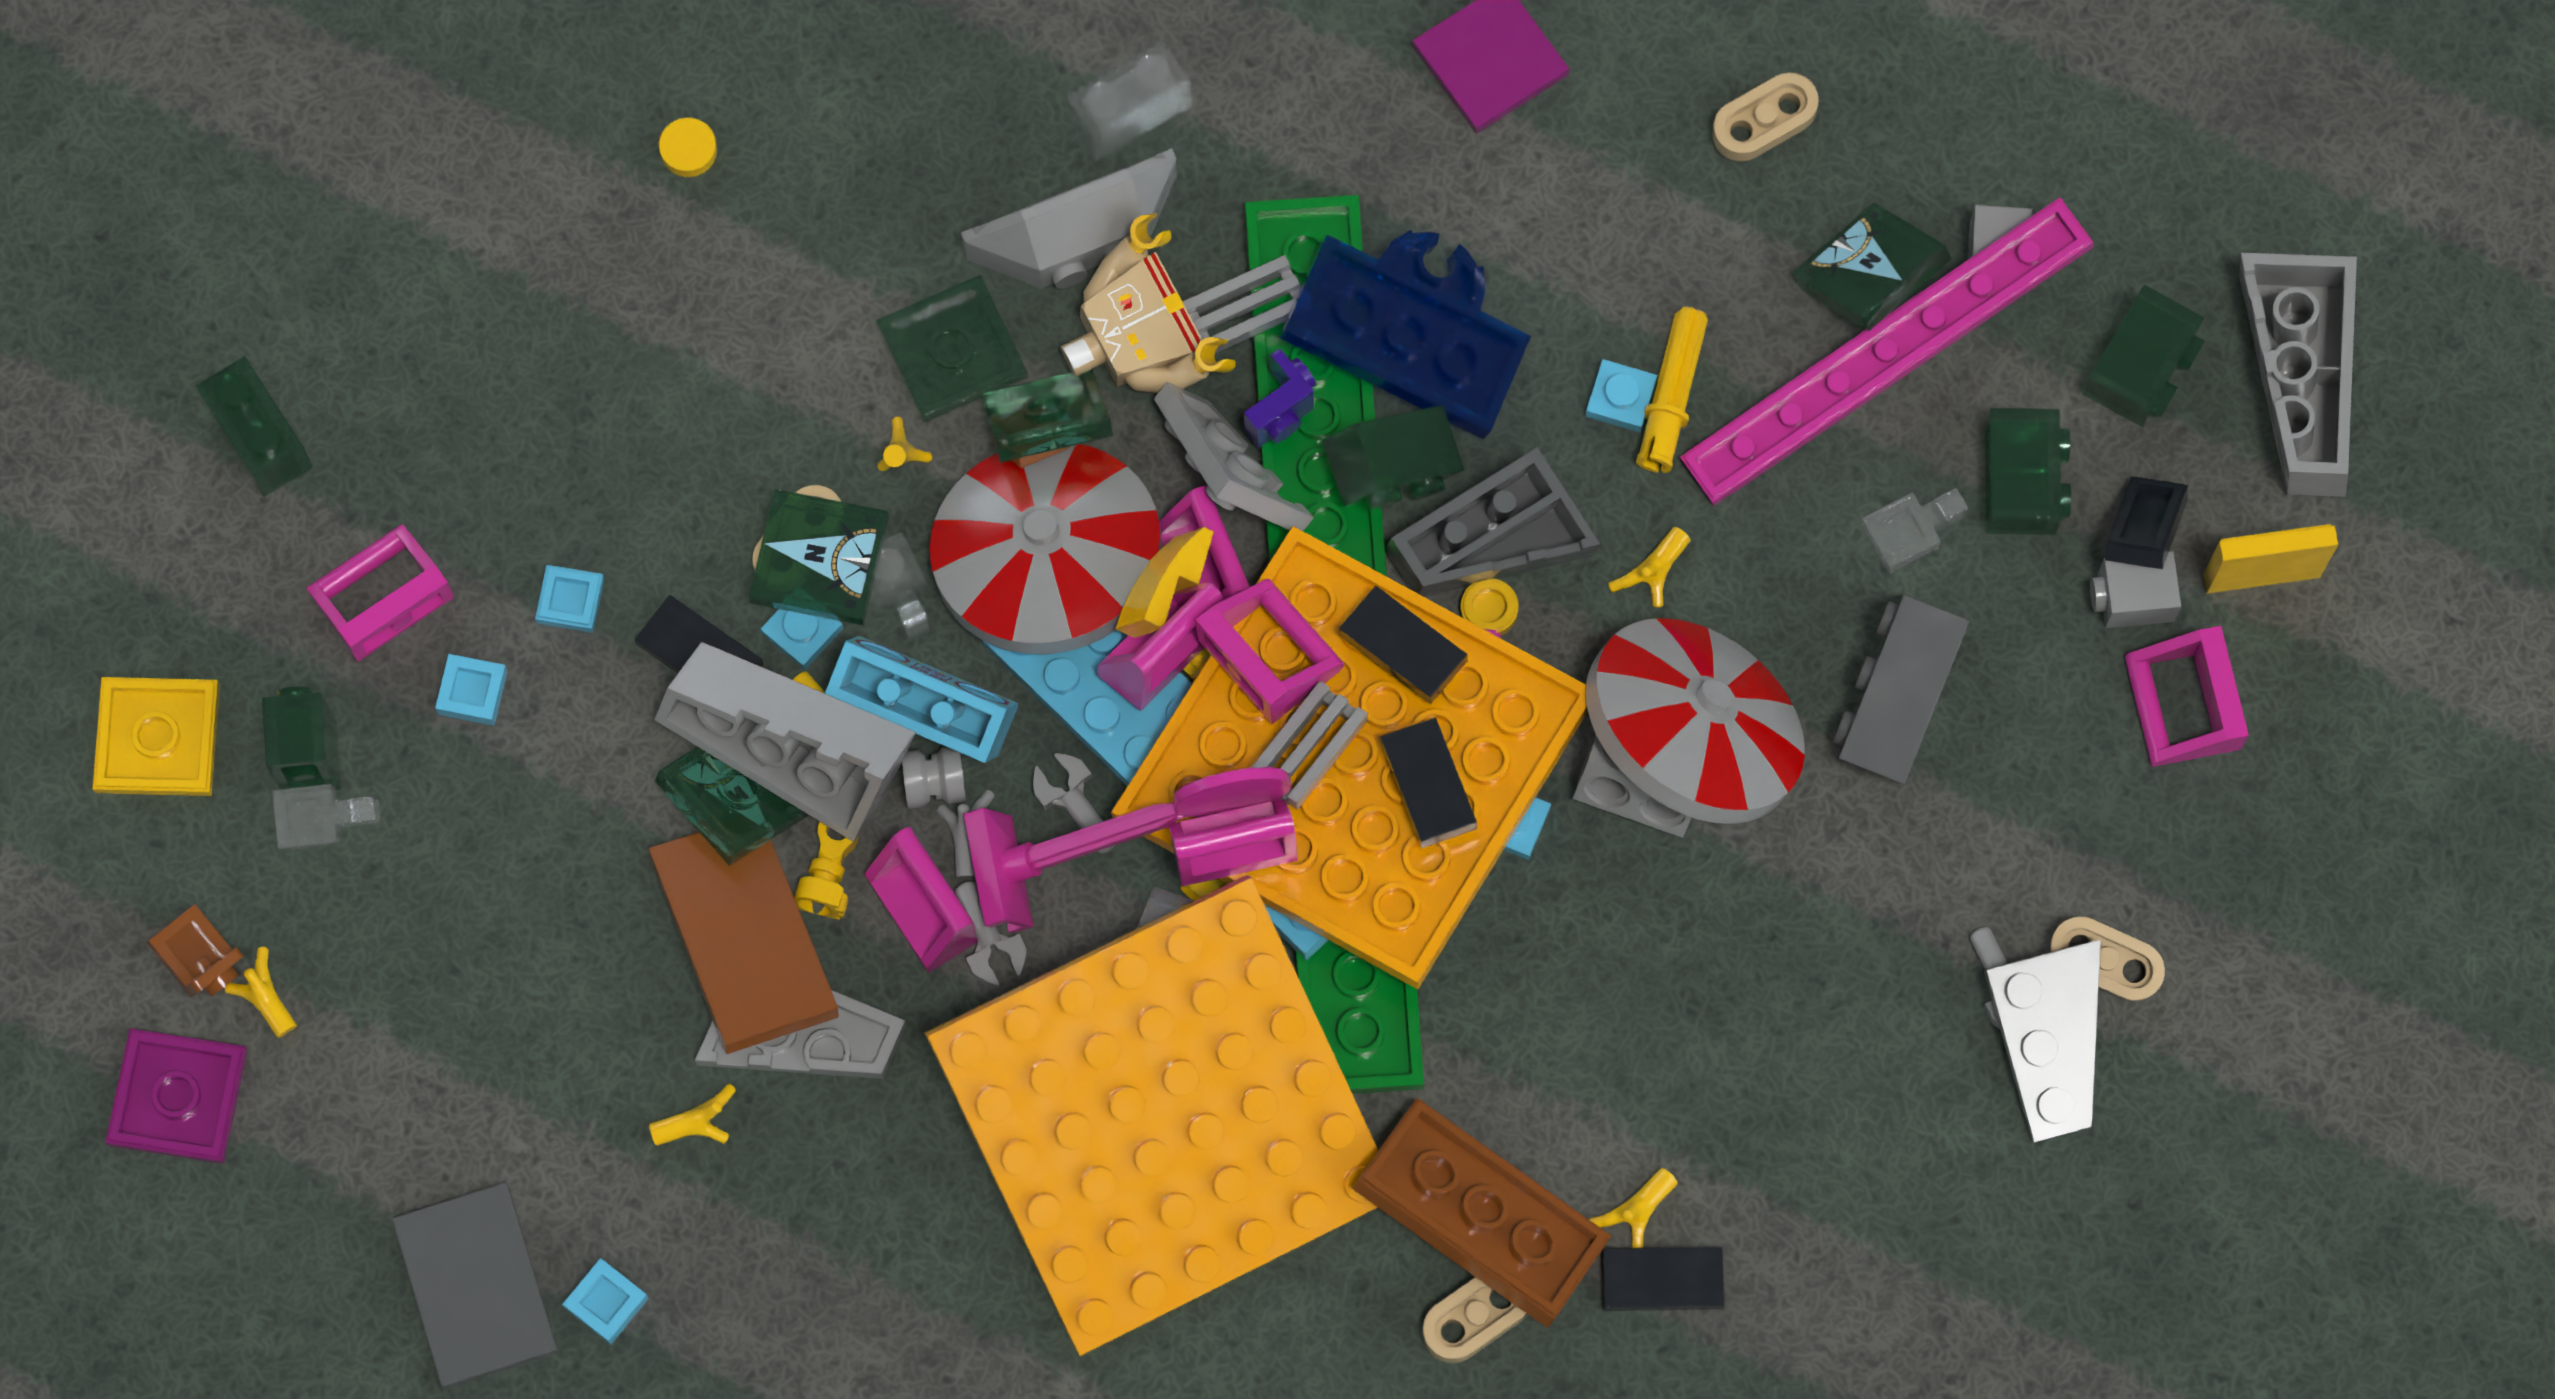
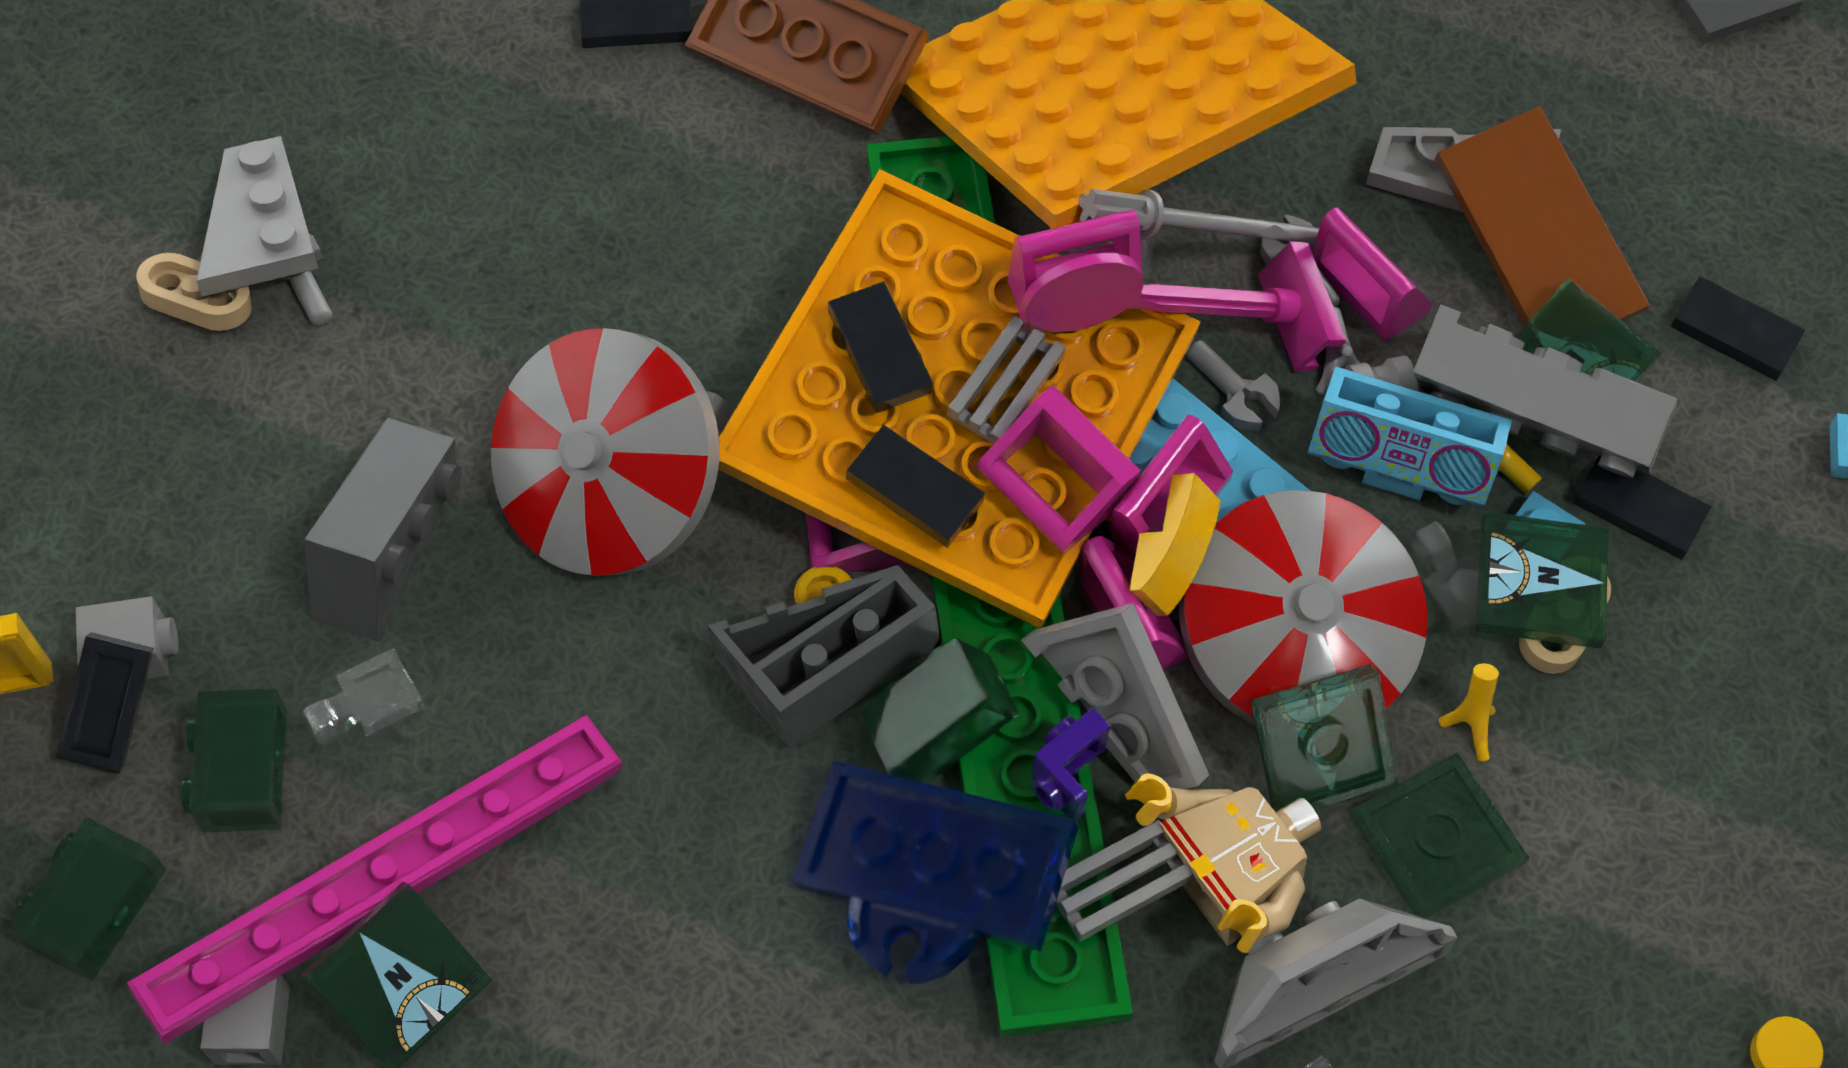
camera: 175 degrees right, 10 degrees down
(559, 834) = (1738, 328): none -> black tile
(569, 598) = (1787, 549): medium azure tile -> none
(693, 1121) = (1552, 92): yellow bar -> none
(826, 874) = (1473, 285): yellow piece -> none
(1158, 894) = (1154, 214): none -> light grey piece
(1621, 395) = (688, 829): medium azure plate -> none
(1640, 1206) = (659, 71): yellow bar -> none
(1655, 566) = (648, 647): yellow bar -> none
(1667, 410) = (629, 835): yellow axle -> none
(2218, 690) = (43, 507): dark pink tile -> none

